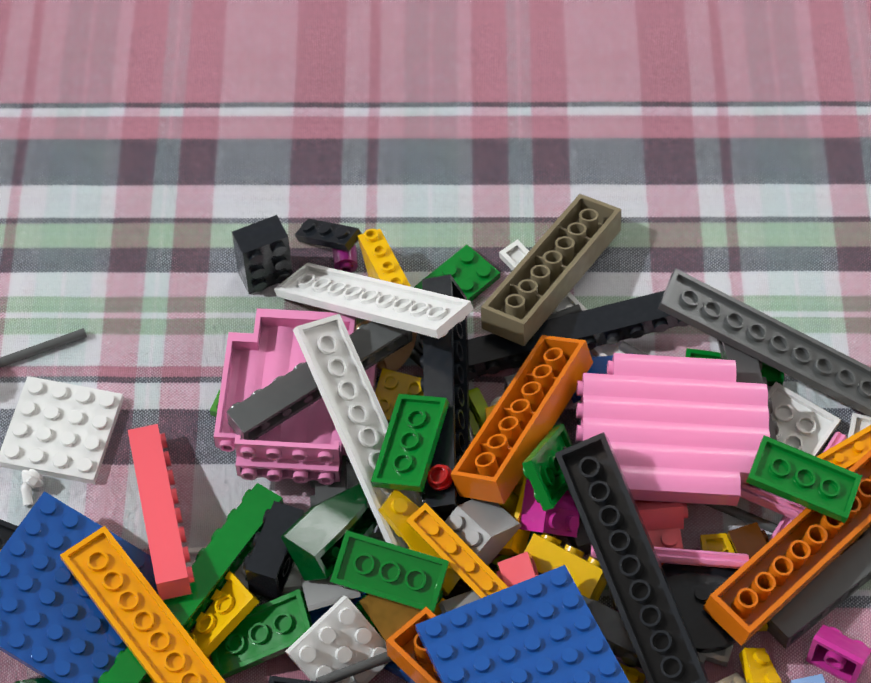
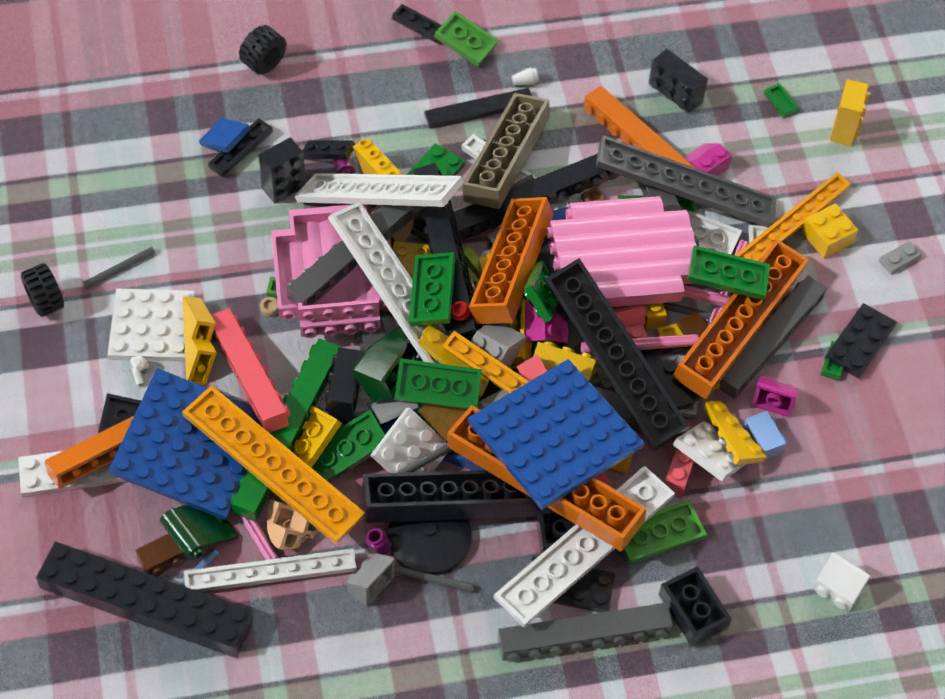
camera: 15 degrees left, 0 degrees up
(110, 452) = (197, 336): none -> yellow slope
(205, 197) = (224, 135): none -> blue tile
(207, 428) = (269, 306): none -> tan tile
(222, 216) = (227, 160): none -> black plate
(275, 94) = (262, 49): none -> black tyre
(481, 85) = (416, 22): none -> black plate
(523, 205) = (470, 109): none -> black tile
(535, 113) = (466, 38): none -> bright green plate
(601, 174) = (525, 77): none -> white cone
(655, 345) = (592, 195): none -> medium nougat tile
(700, 519) = (655, 316): none -> yellow brick
(721, 260) = (626, 125): none -> orange brick
(796, 206) = (677, 81): none -> black brick
(814, 316) = (710, 158): none -> dark pink slope

